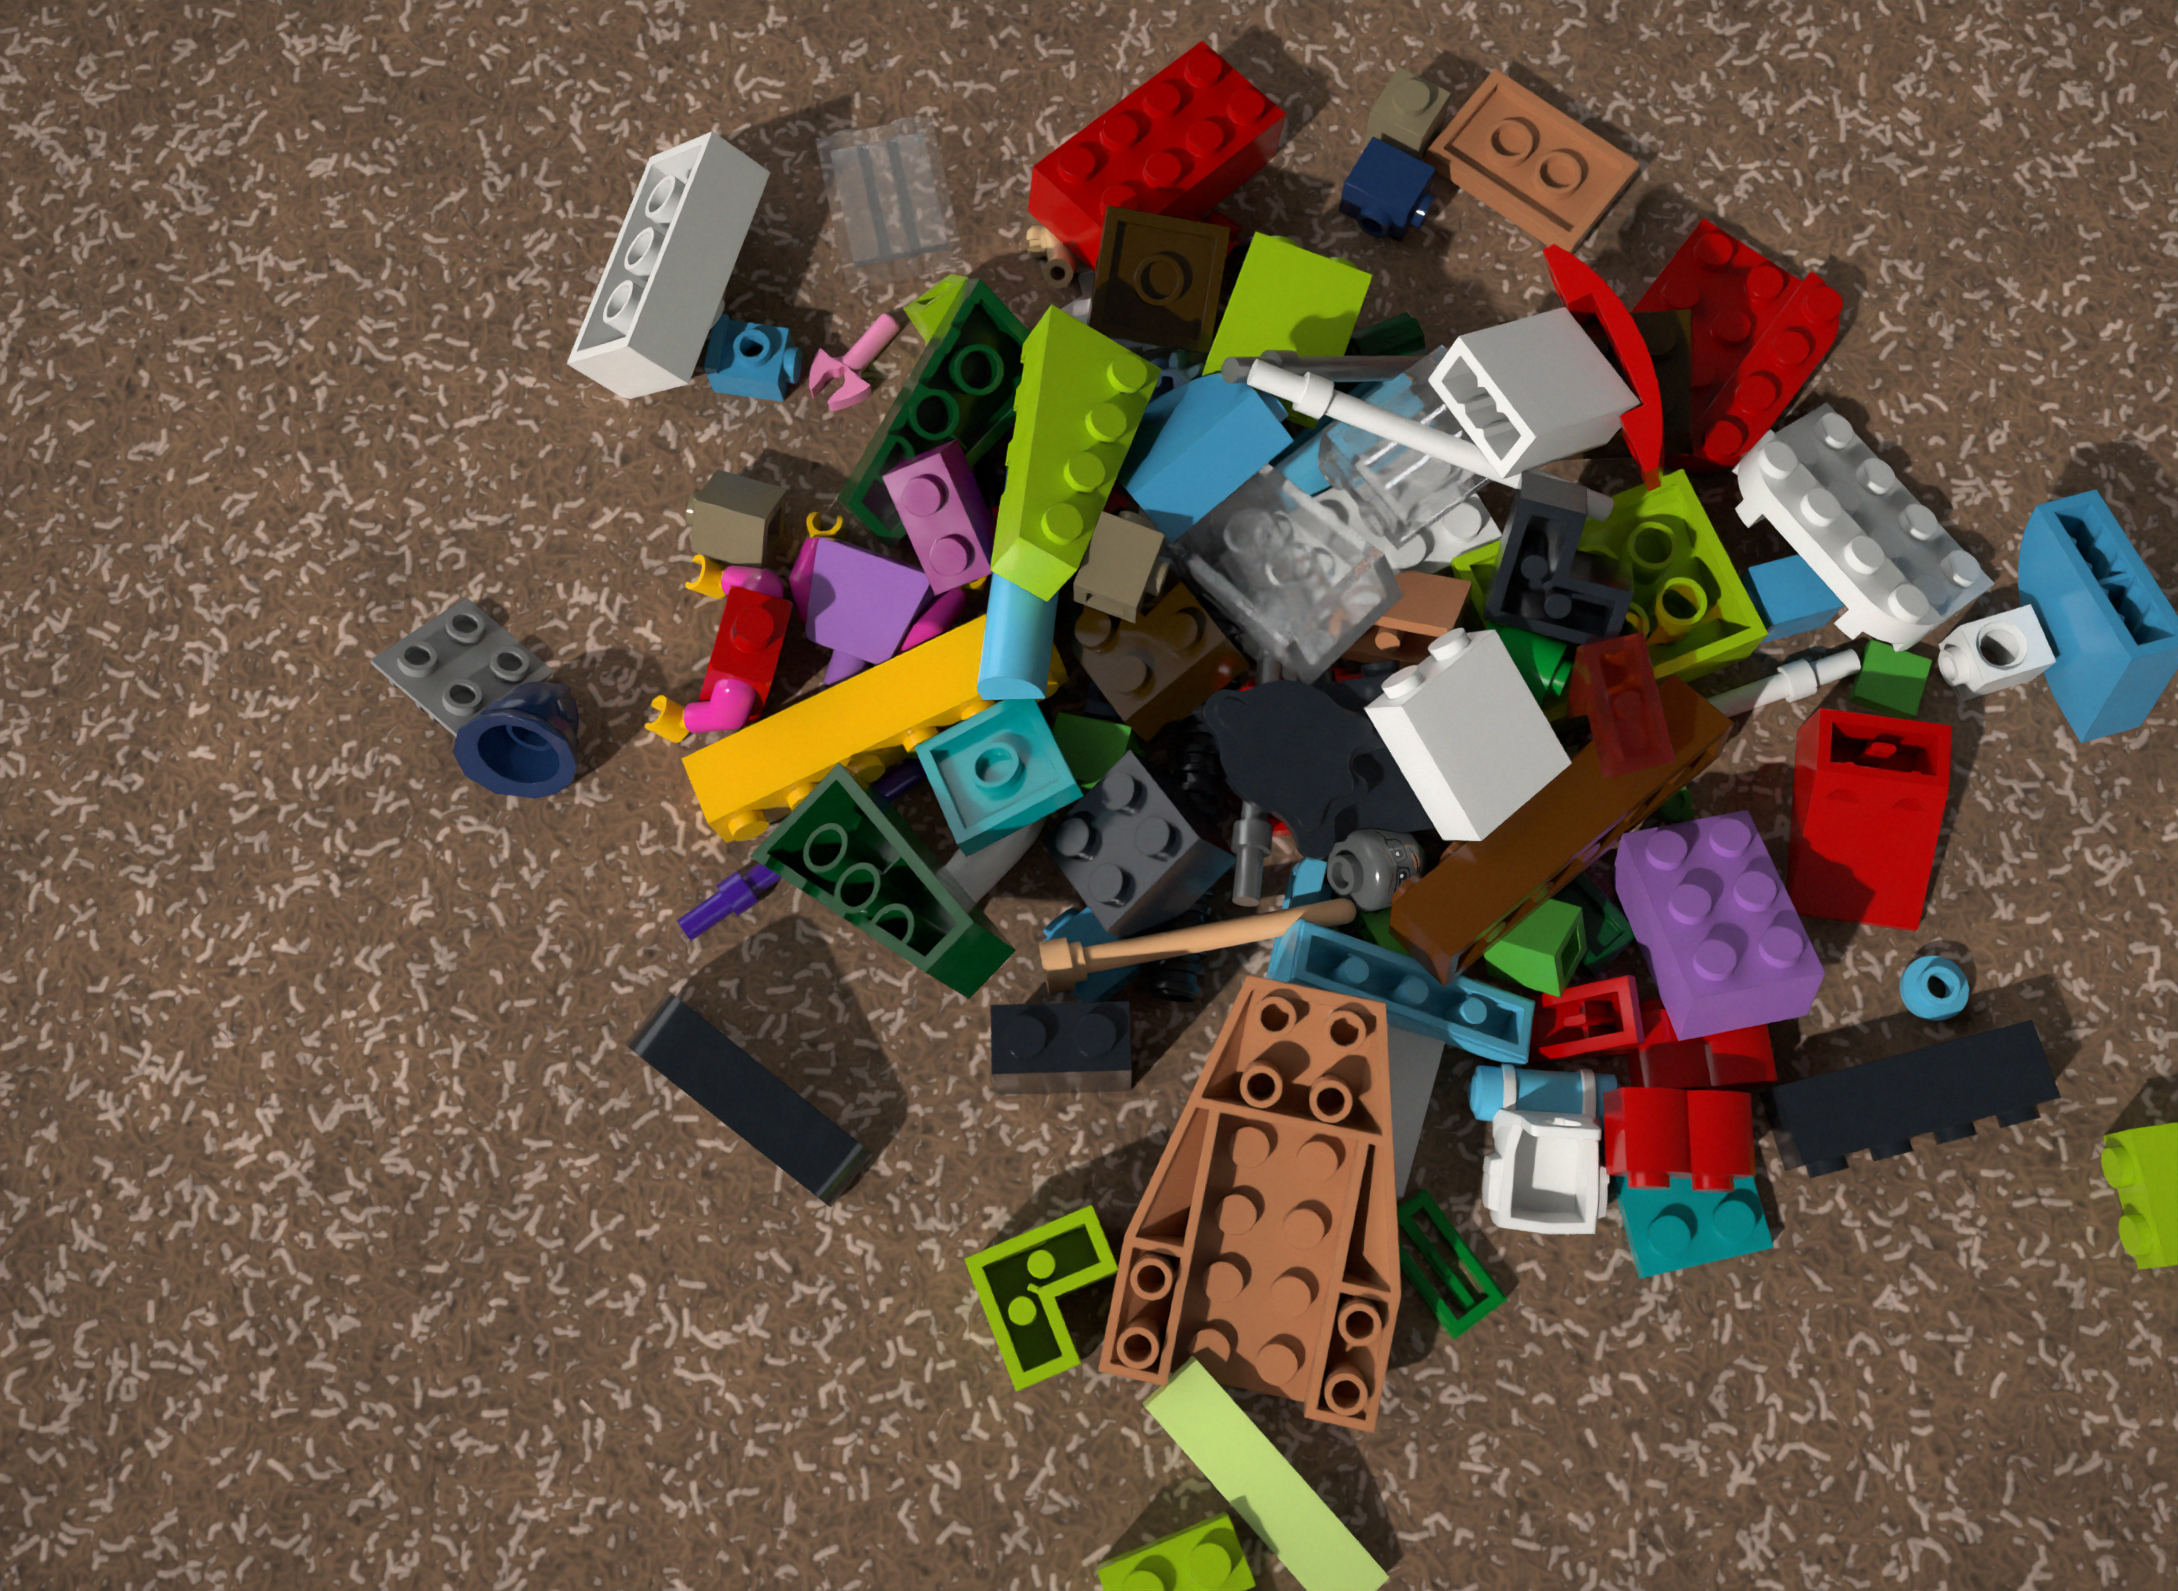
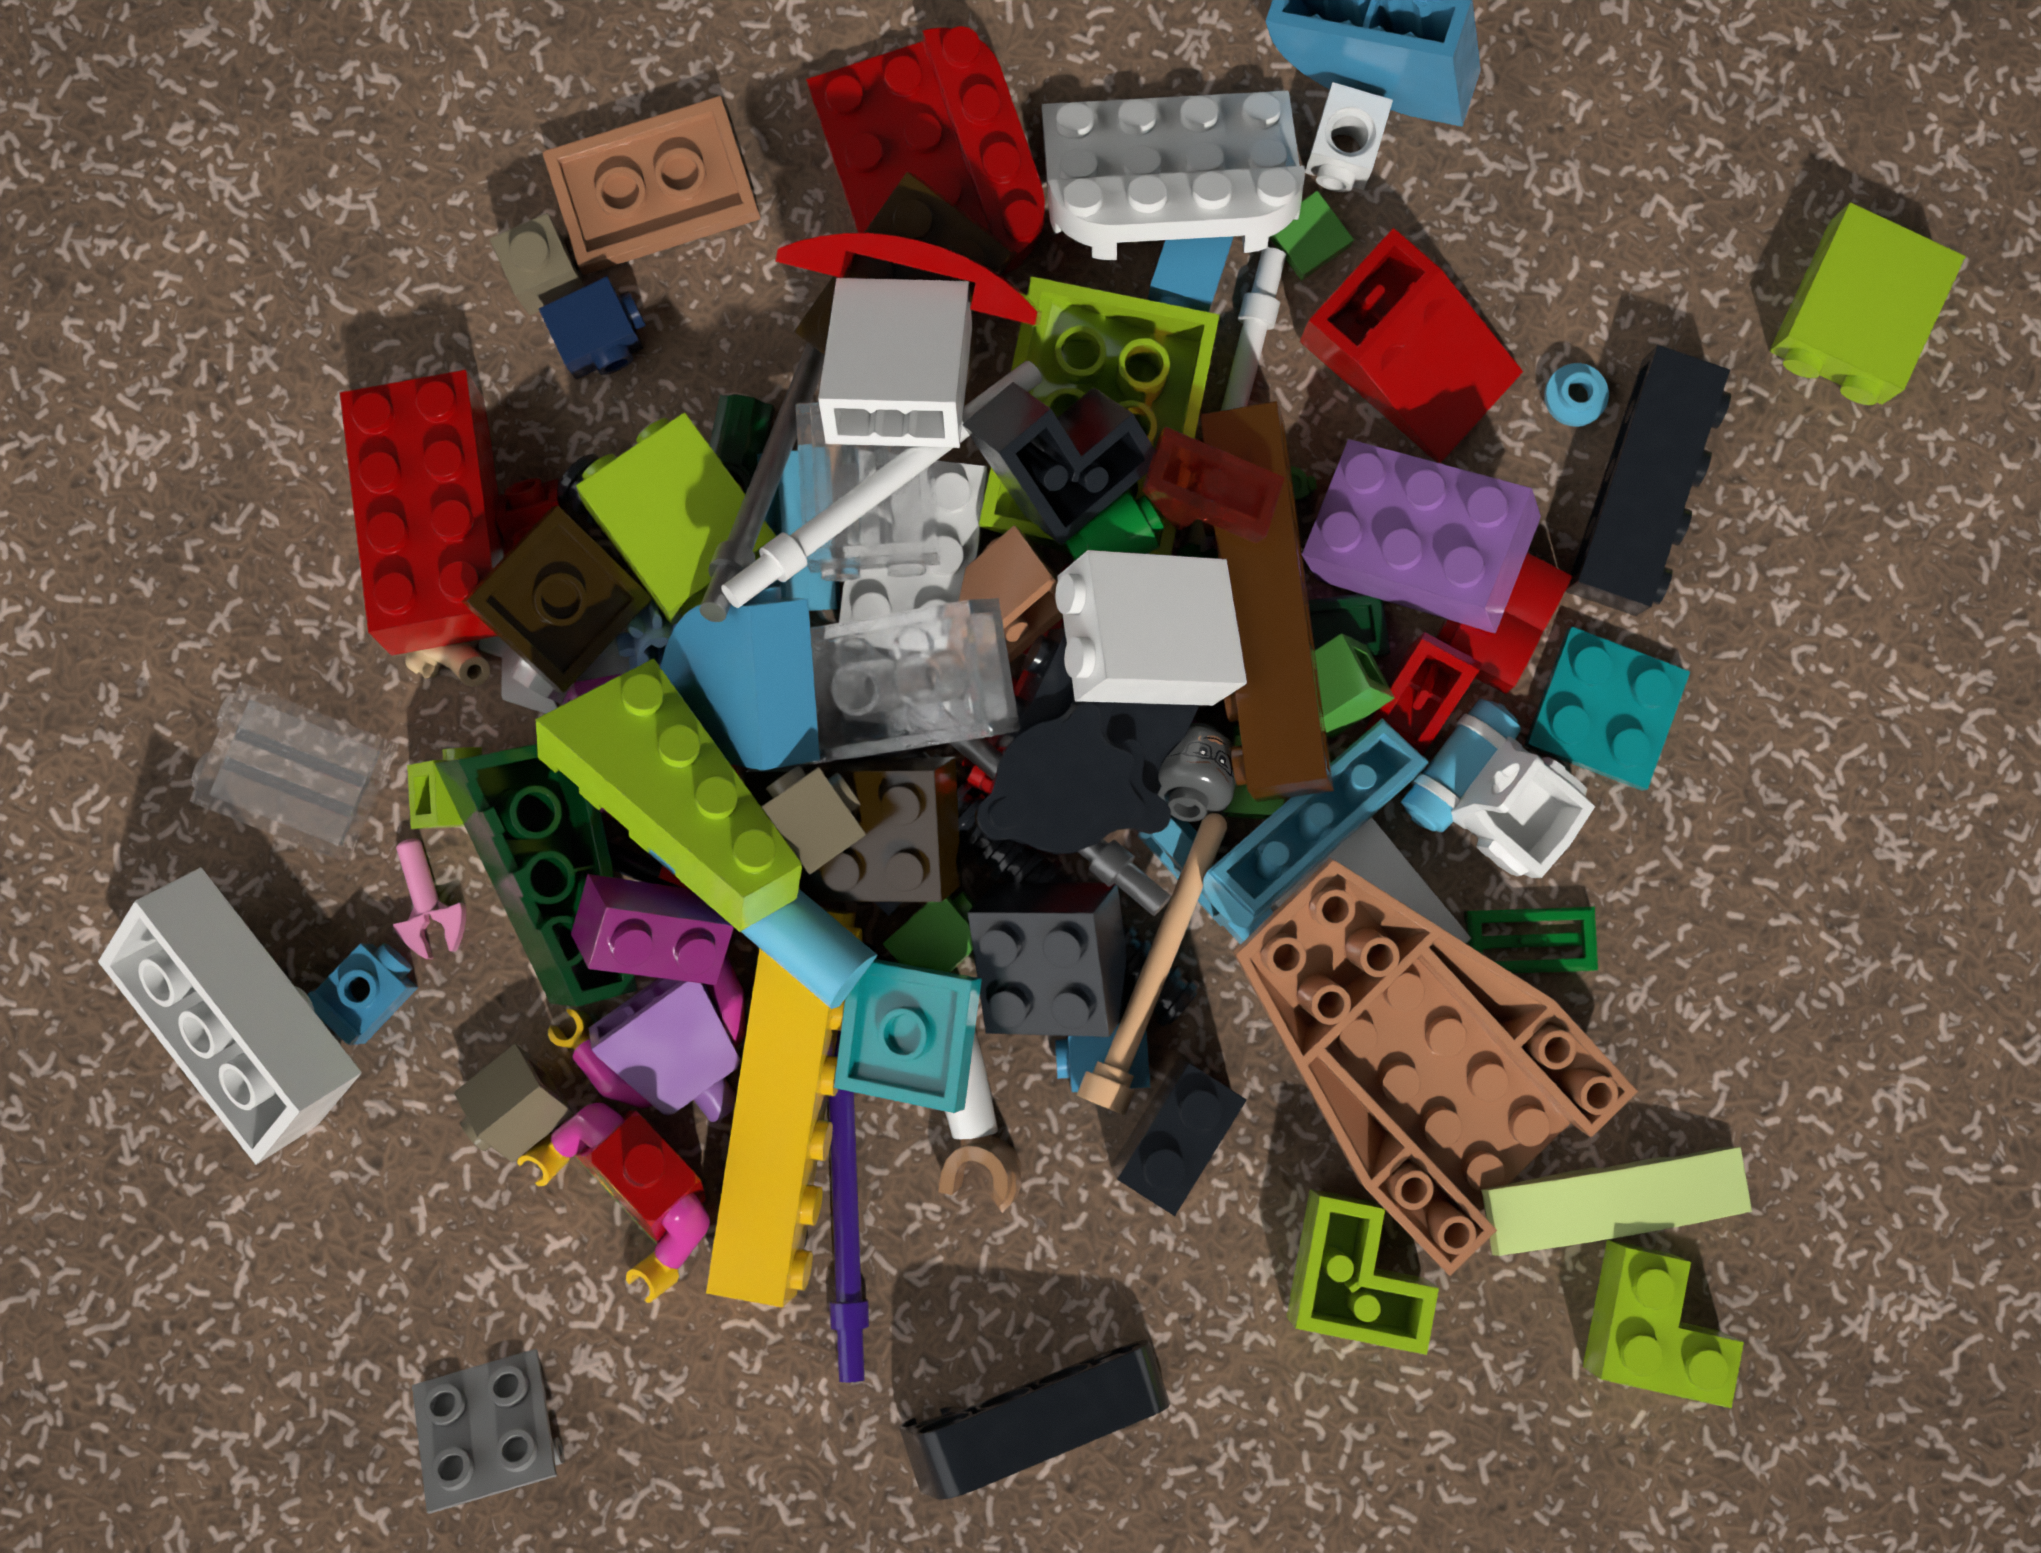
camera: 60 degrees left, 10 degrees up
(523, 742) = (591, 1415): dark blue piece -> none
(878, 874) = (938, 1192): dark green wedge -> none
(1678, 1135) = (1569, 690): red brick -> none

